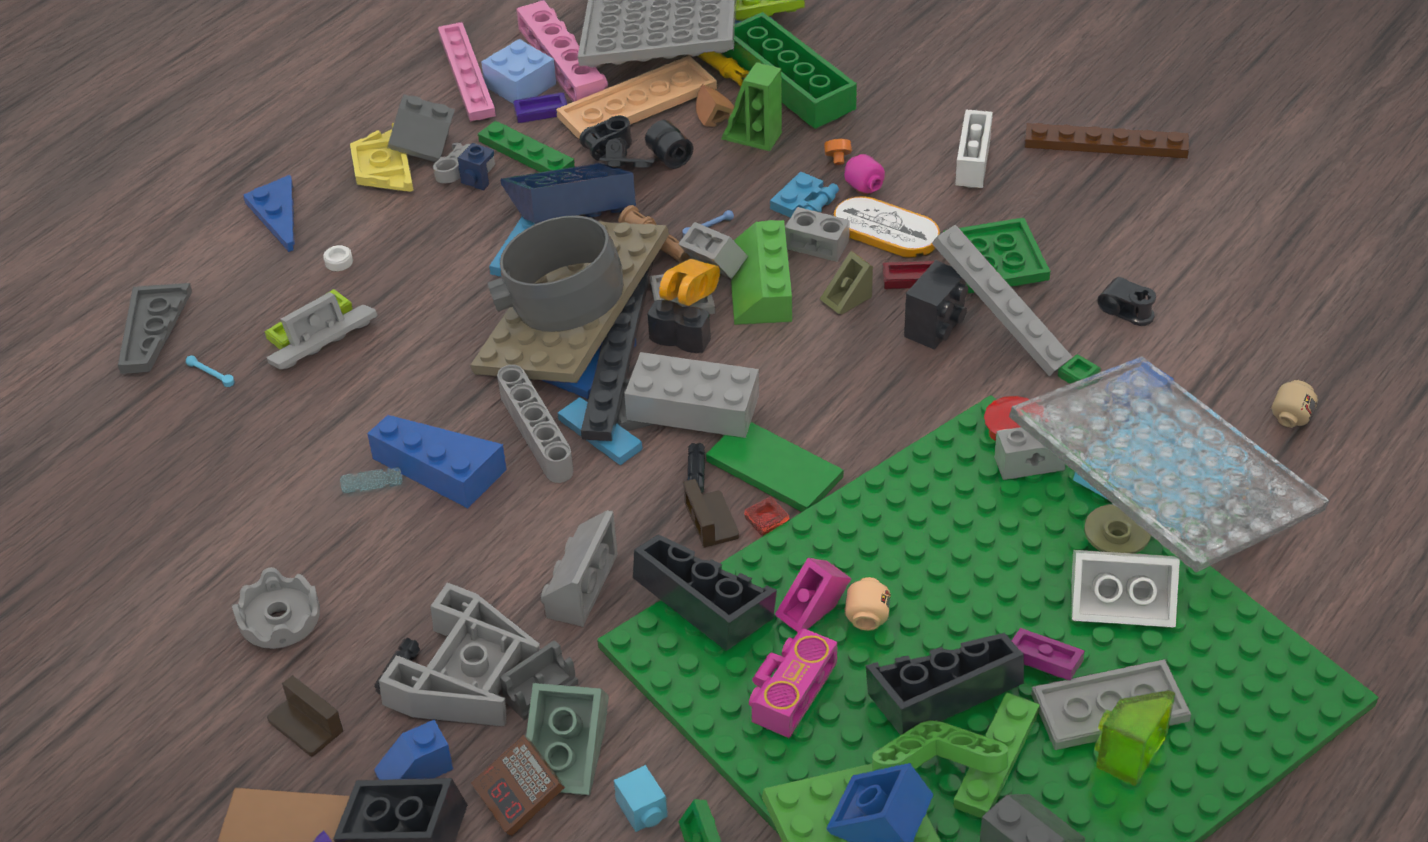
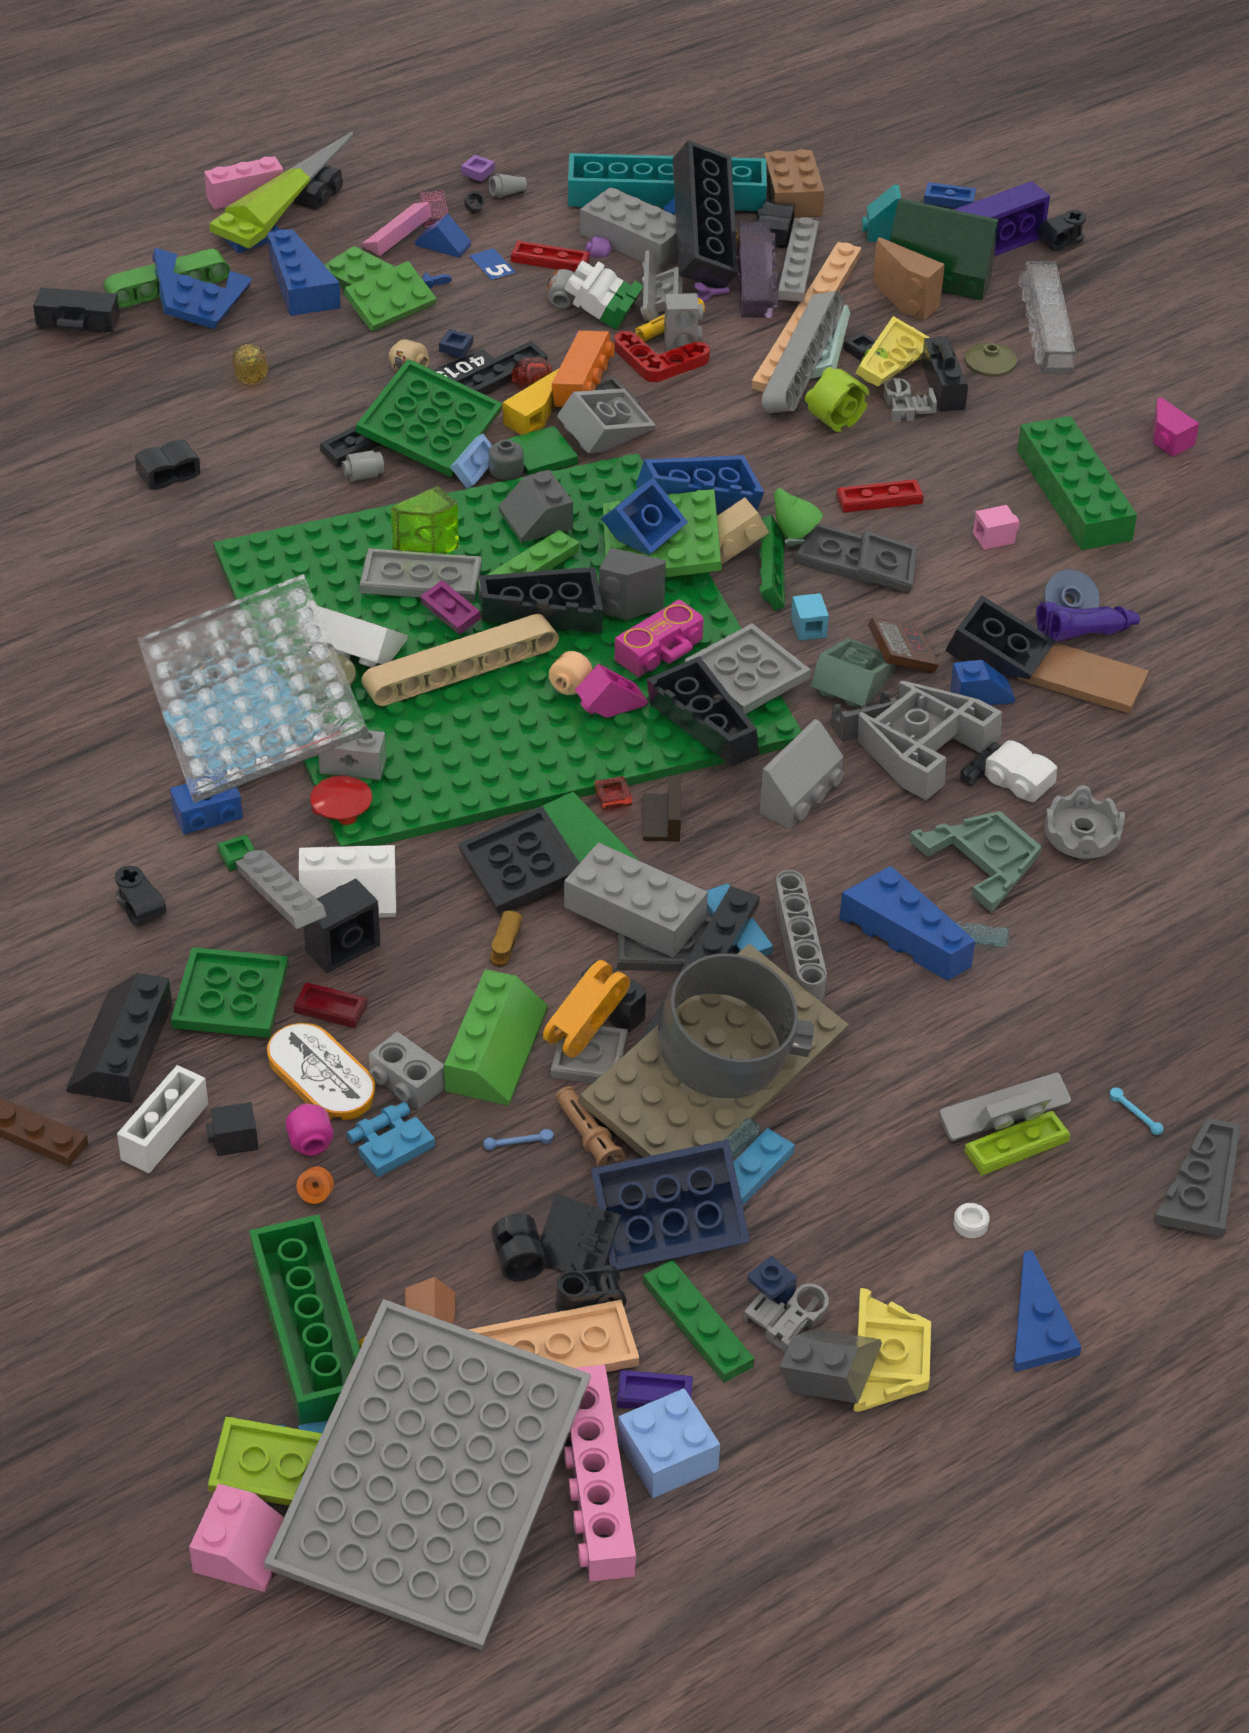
camera: 165 degrees left, 0 degrees up
(305, 718) = (1066, 744): dark brown panel -> none
(351, 658) = (1021, 771): none -> white brick
(372, 570) = (990, 843): none -> sand green wing
(466, 72) = (739, 1488): bright pink plate -> none
(682, 676) = (753, 667): none -> light grey plate
(696, 464) = (660, 851): black axle -> none
(713, 248) = (539, 1059): light grey brick -> none
(757, 110) = (392, 1231): bright green wedge -> none
(797, 358) = (505, 938): none -> pearl gold bar
(818, 418) = (519, 859): none -> black plate
(849, 285) = (409, 995): olive slope -> none
(853, 719) = (631, 584): none -> dark grey slope
(921, 165) = (232, 1129): none -> black brick
(946, 741) = (570, 560): bright green beam -> none
(963, 365) = (373, 866): none -> white slope
(995, 588) = (459, 659): none -> tan beam
(1051, 201) = (123, 1039): none -> black slope
(1294, 403) = (73, 754): tan head -> none

